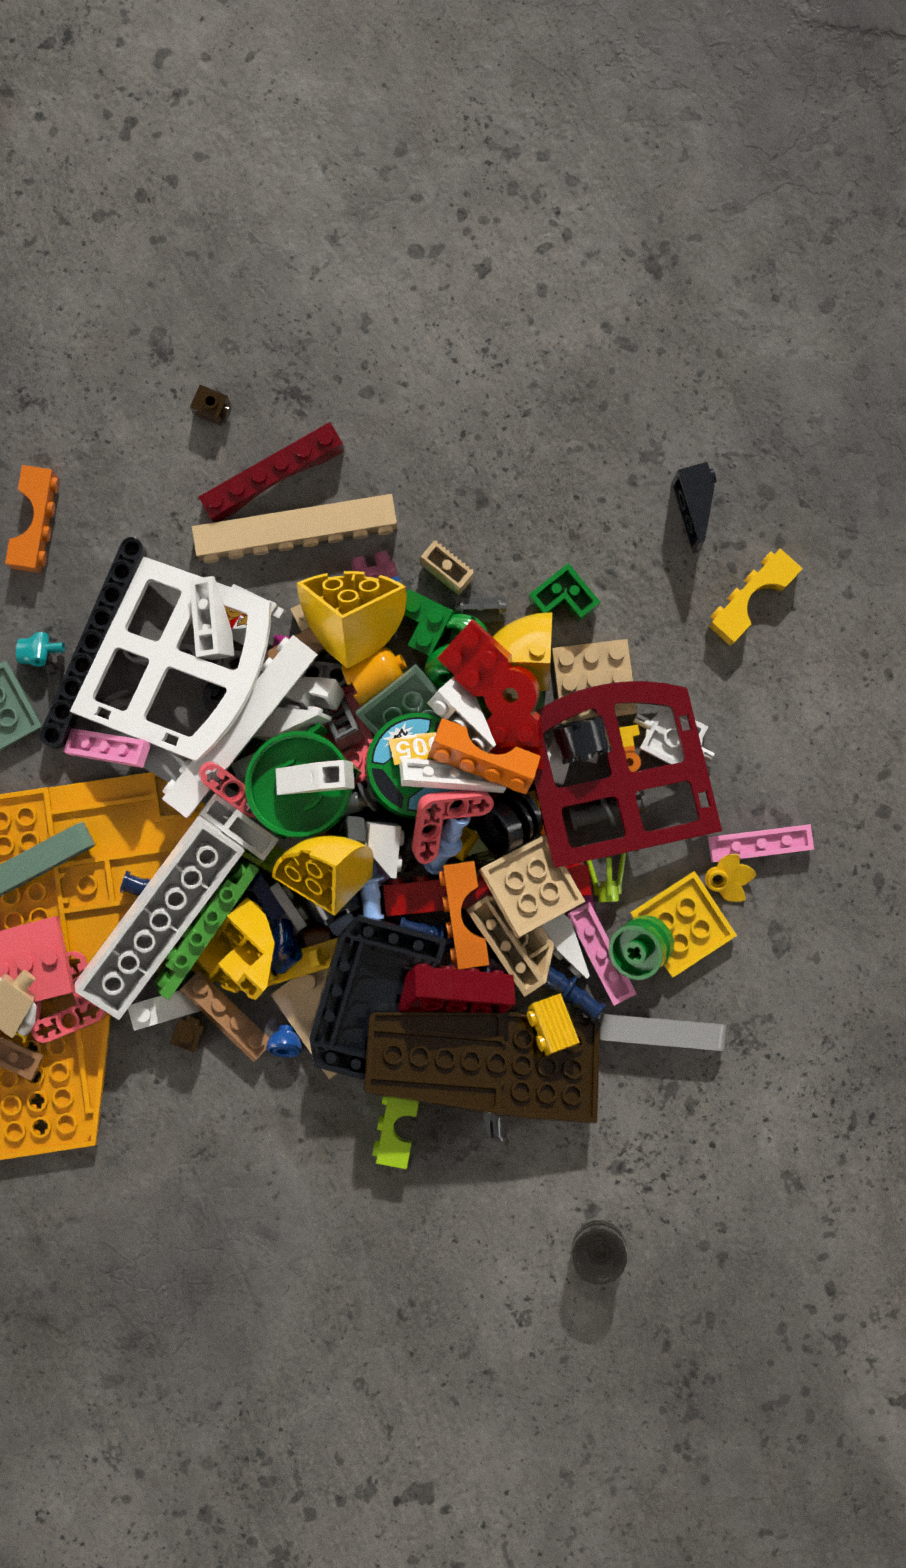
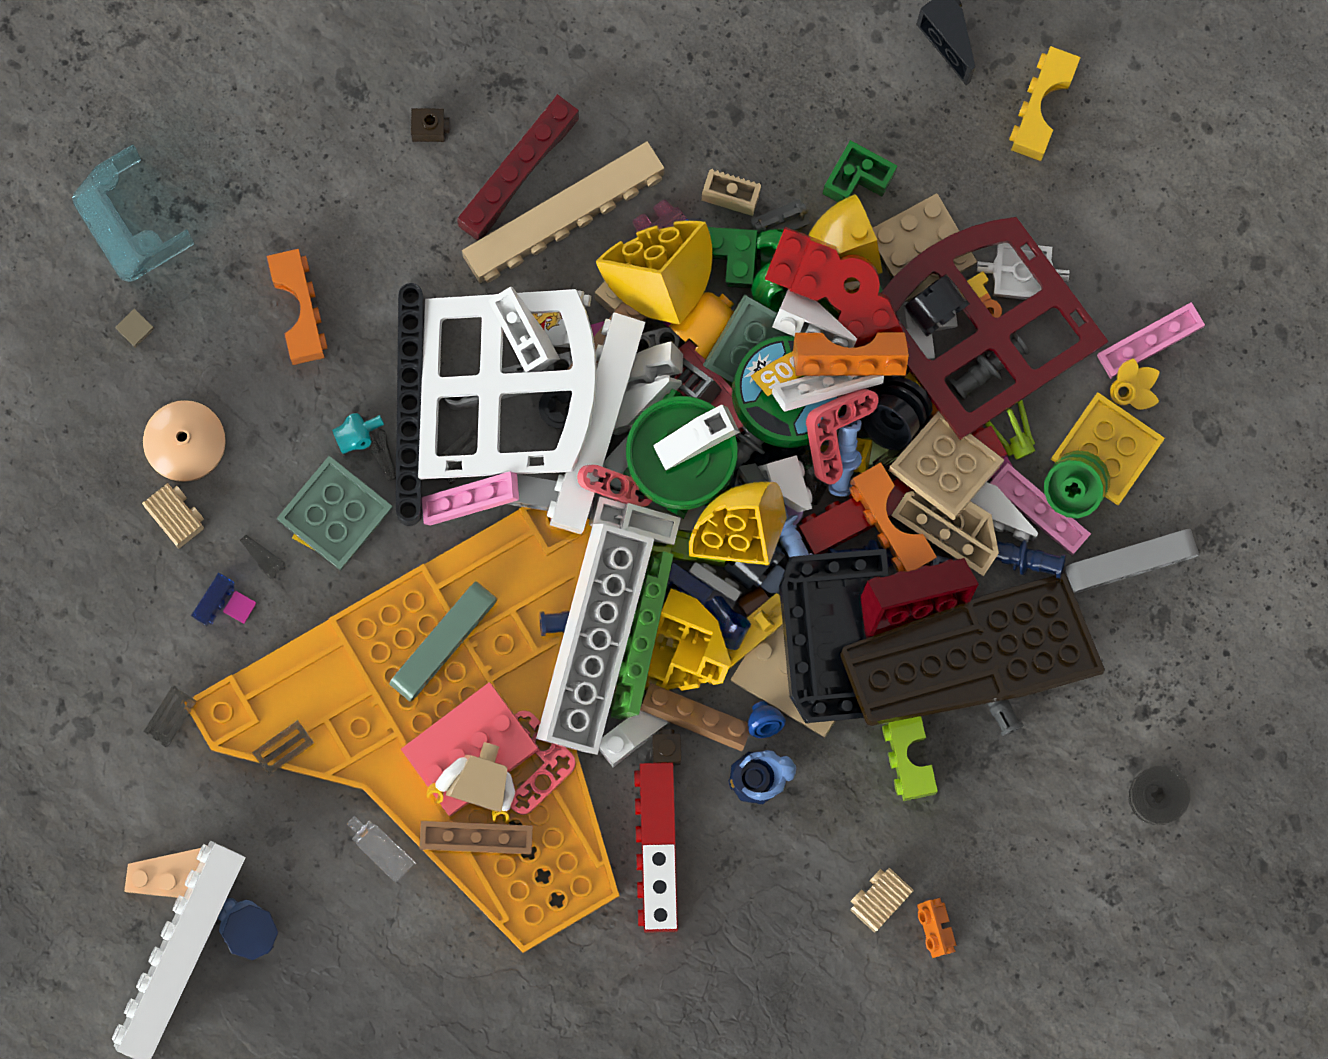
camera: 25 degrees left, 5 degrees down
(145, 1118) = (658, 847): none -> brick
(260, 1090) = (760, 776): none -> piece
(320, 1241) = (881, 899): none -> tan brick
(356, 1297) = (931, 916): none -> orange hinge
(552, 1024) = (1022, 592): yellow brick -> none

